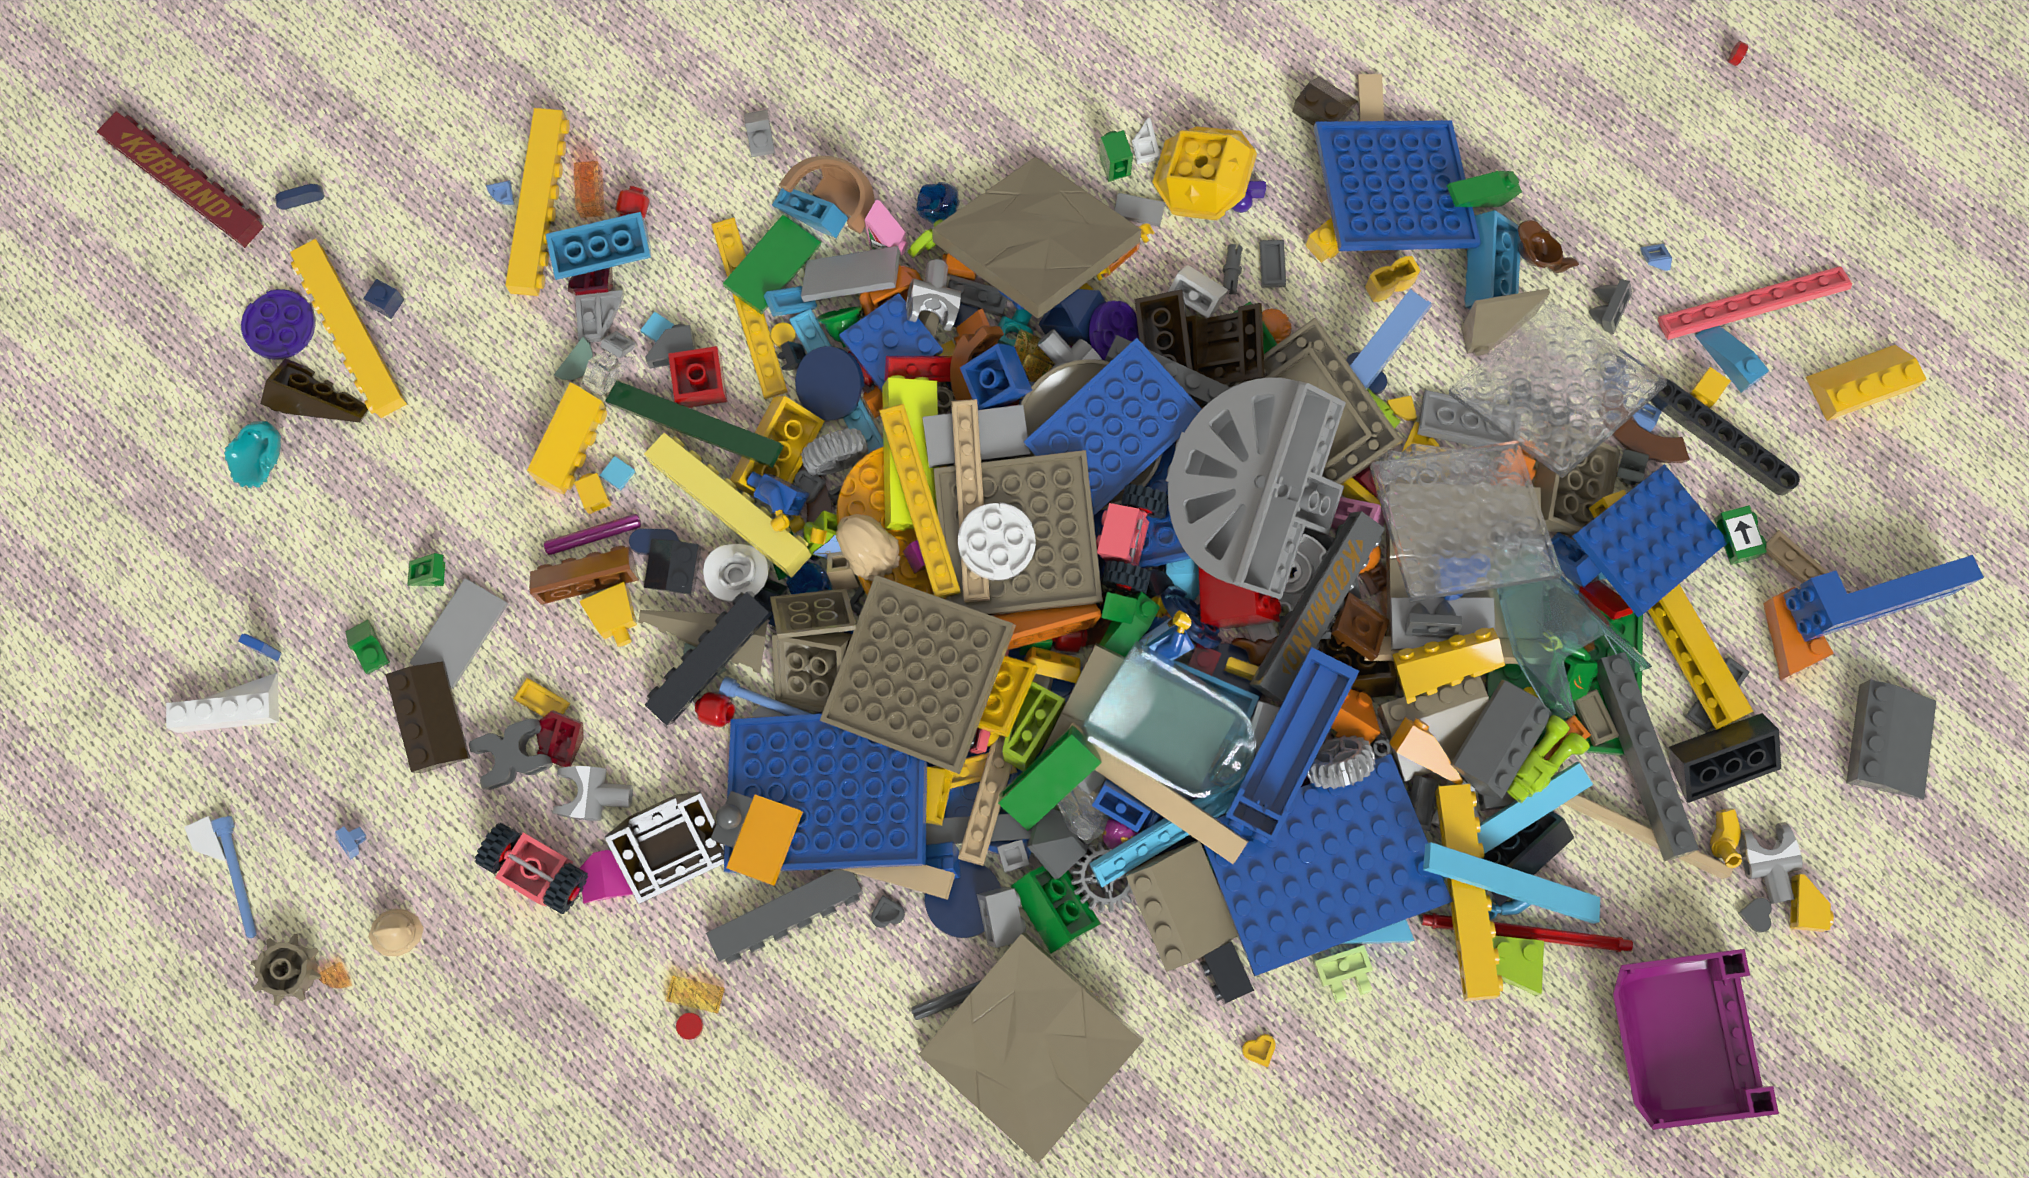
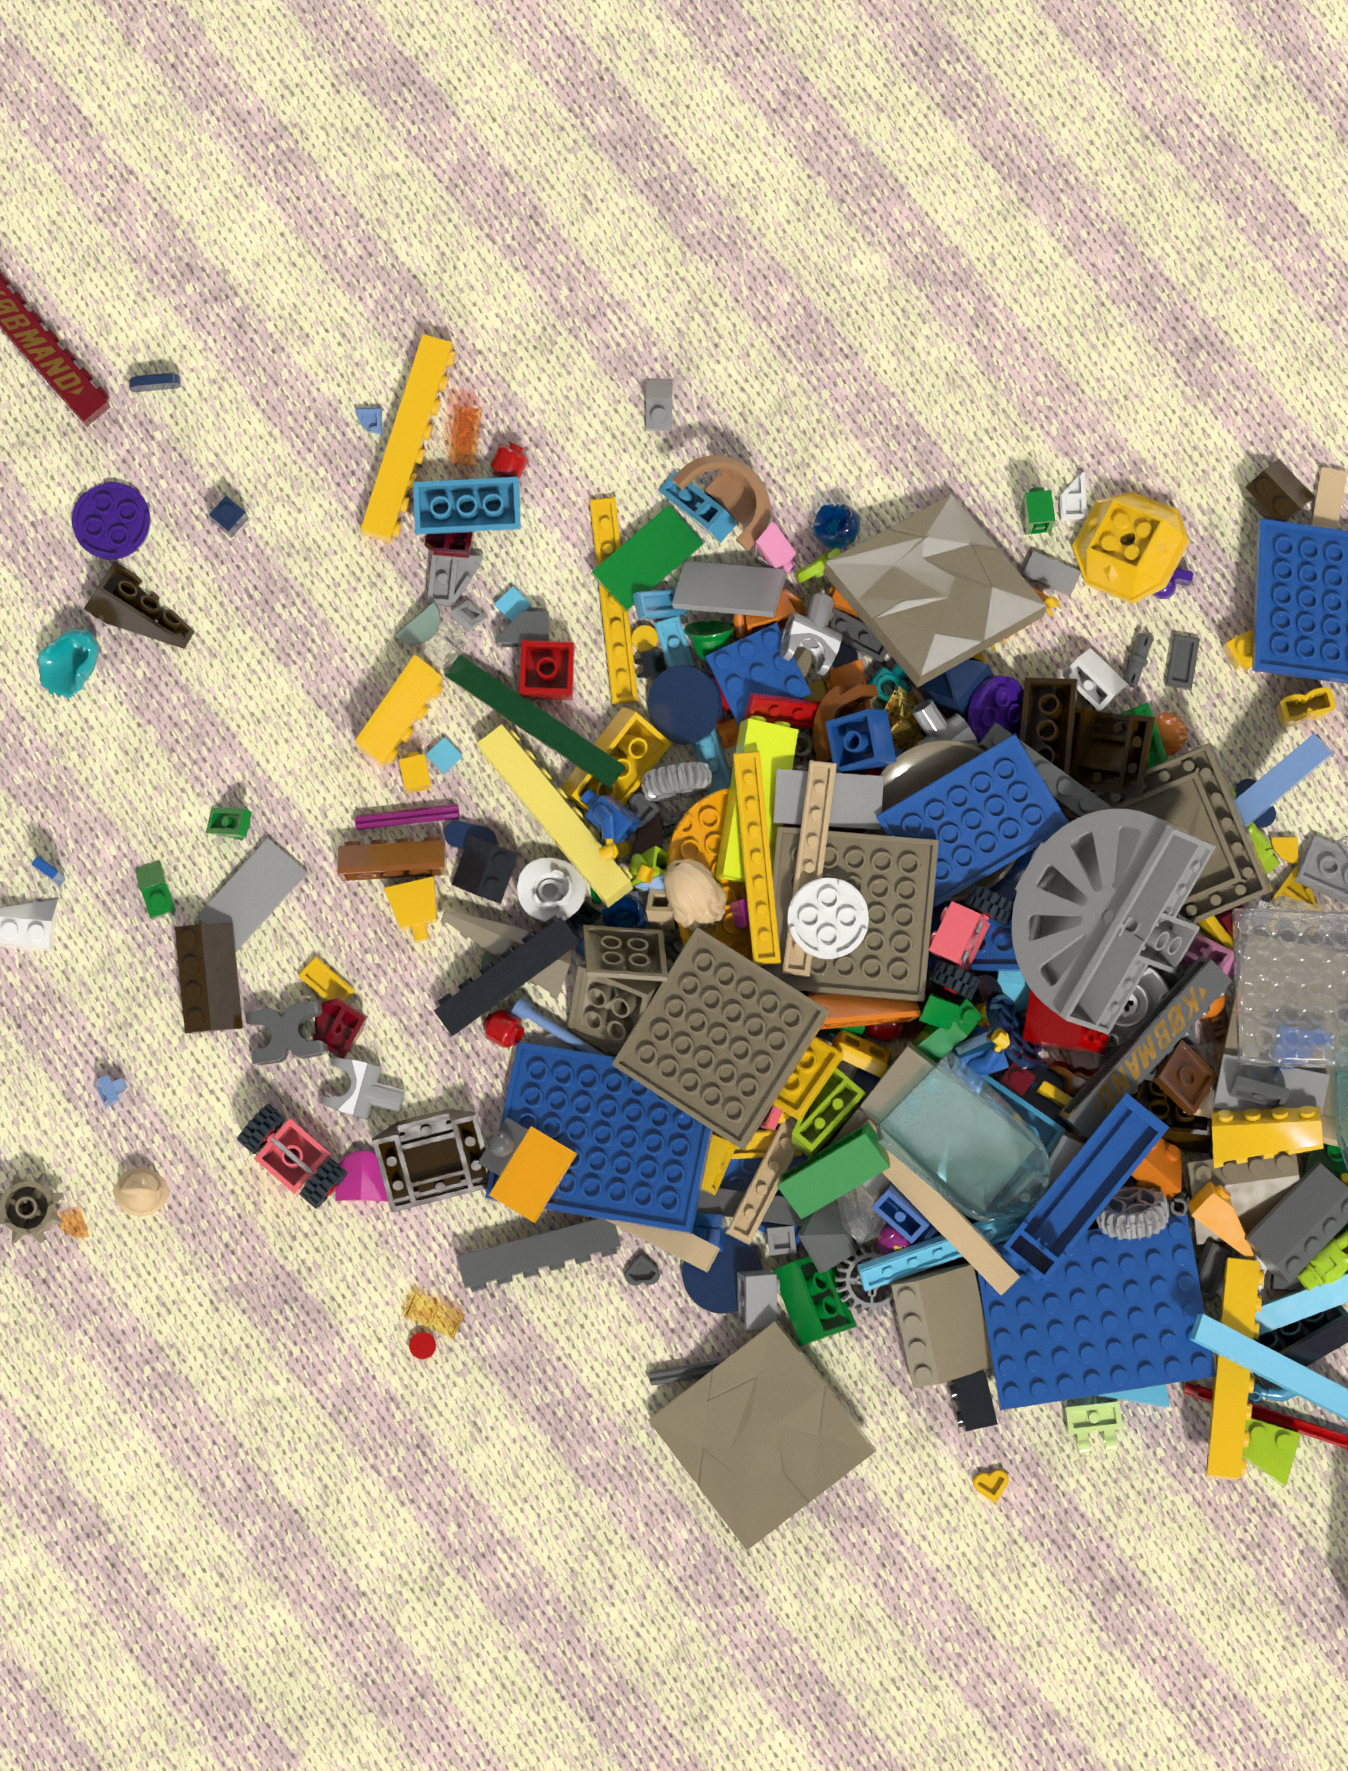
camera: 10 degrees right, 5 degrees up
(348, 329) = (185, 541): yellow brick -> none

